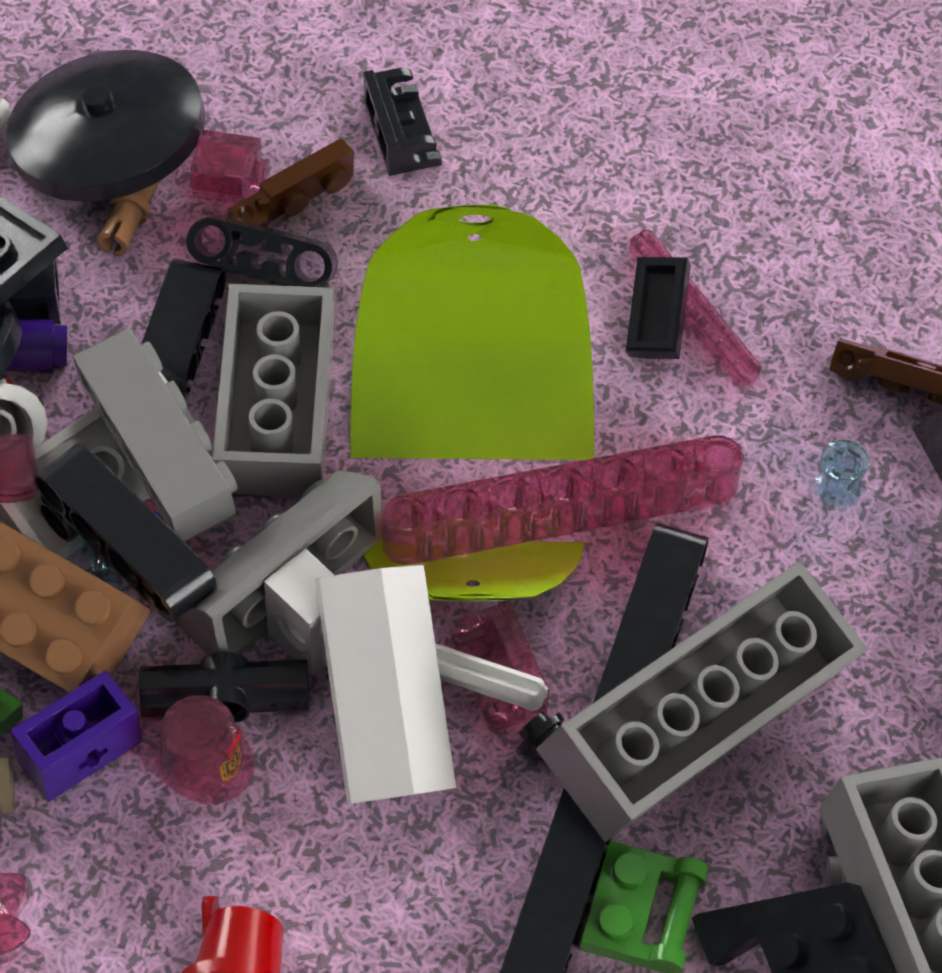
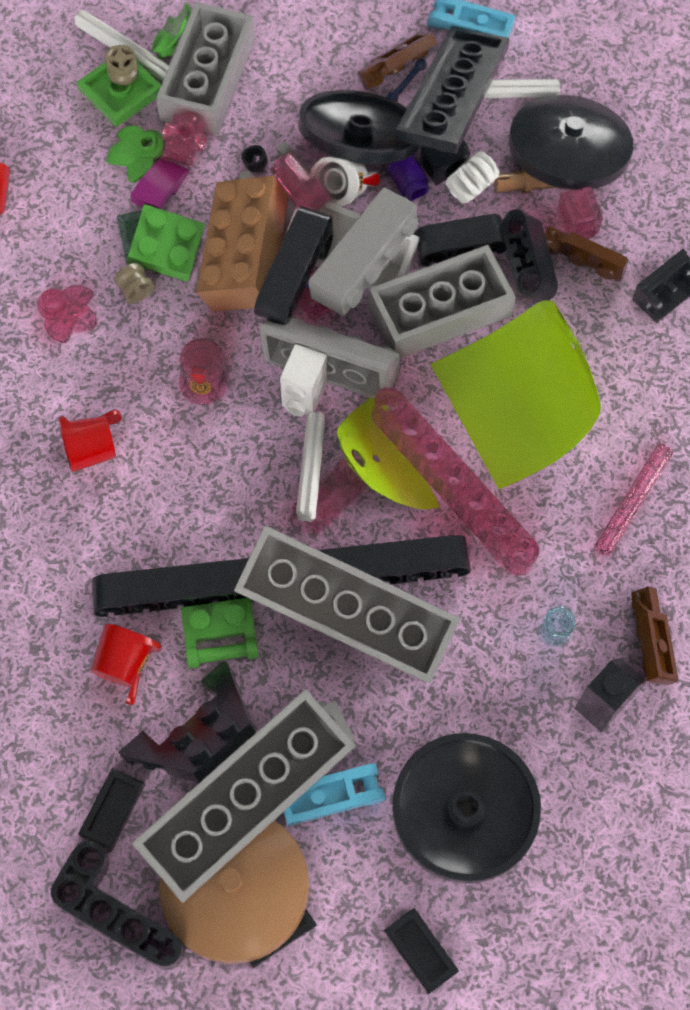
camera: 65 degrees right, 10 degrees up
(76, 735) = (177, 306): dark purple brick -> none
(95, 262) = (472, 177): none -> white gear
(232, 680) = (247, 364): black piece -> none
(385, 683) = (275, 436): white slope -> none
(536, 732) = (298, 532): black plate -> none
(658, 307) = (618, 478): black tile -> none

